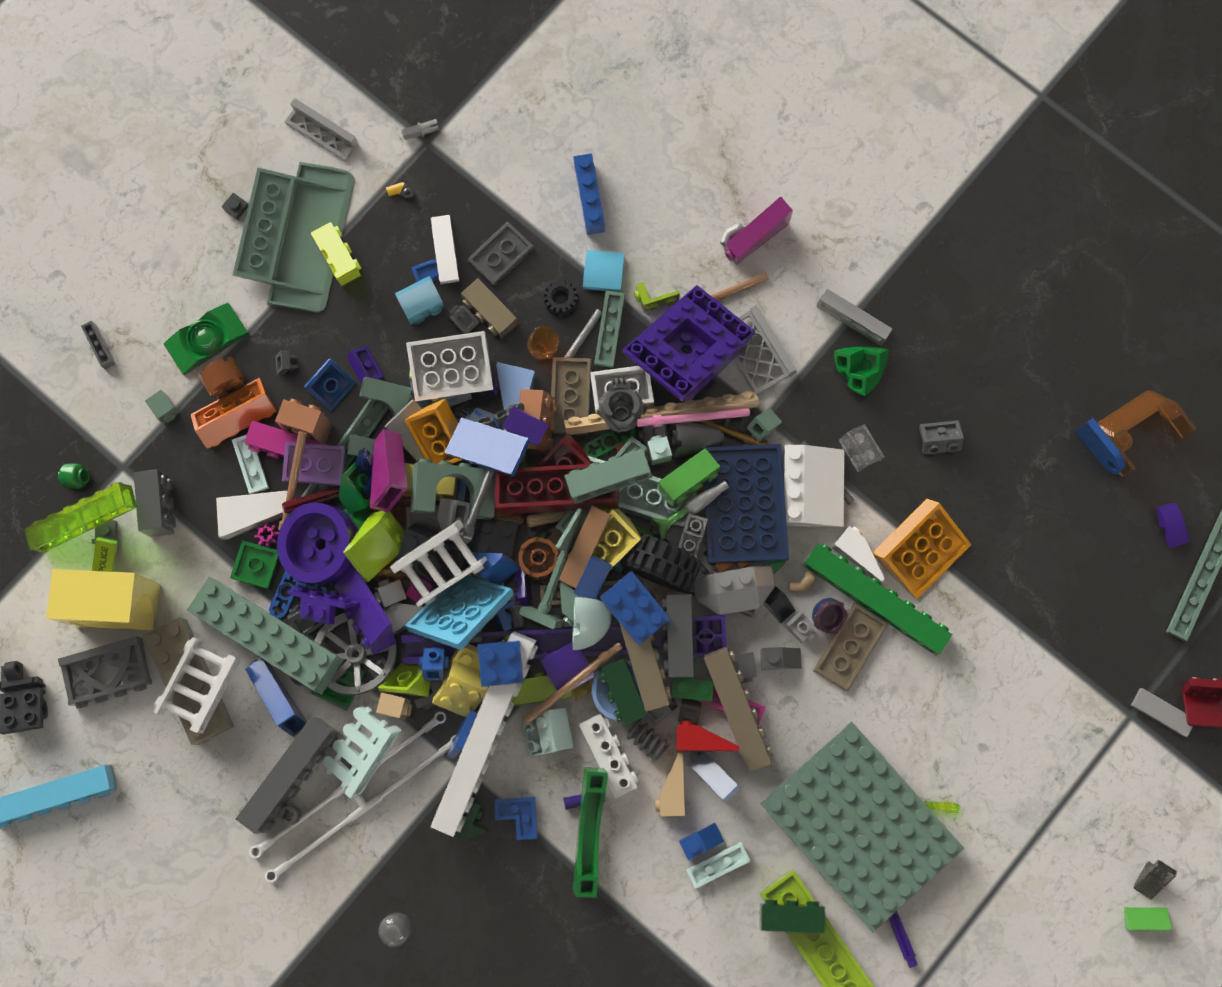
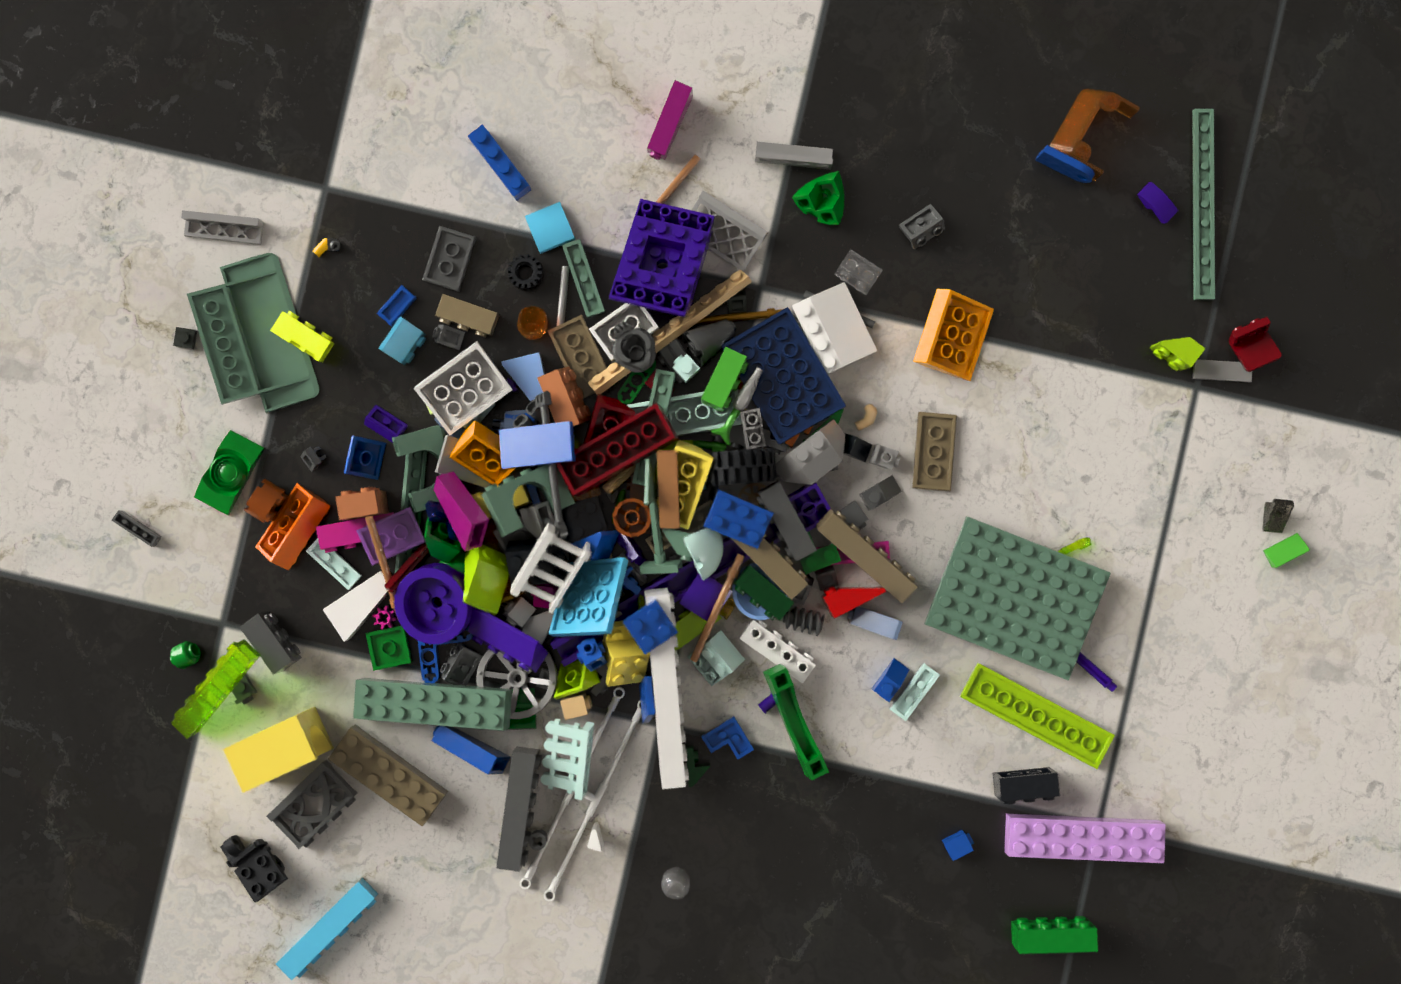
camera: 30 degrees left, 10 degrees up
(104, 555) = (255, 711): lime tile -> none
(162, 407) = (227, 554): sand green brick -> none
(208, 702) = (418, 785): white fence -> none
(319, 605) = (465, 655): dark purple bracket -> none
(343, 842) = (596, 841): none -> white slope
(419, 130) = (312, 180): light grey axle -> none
(445, 249) = (397, 281): white slope -> none
(525, 425) = (559, 410): dark purple slope -> none
(592, 578) = (689, 513): blue slope -> none
(608, 476) = (657, 419): sand green brick -> none
(652, 304) = (597, 234): lime bracket -> none
(657, 420) = (672, 343): bright pink bar -> none
(672, 794) = (847, 655): tan slope -> none
(730, 232) = (644, 132): light grey arm -> none
(764, 424) = (764, 295): sand green brick -> none
(792, 916) = (997, 702): dark green brick -> none
(829, 615) = (903, 435): clear pink hair -> none
(857, 551) = (900, 366): white slope -> none
(877, 599) = (936, 399): green brick -> none
(1128, 670) = (1179, 352): none -> lime slope

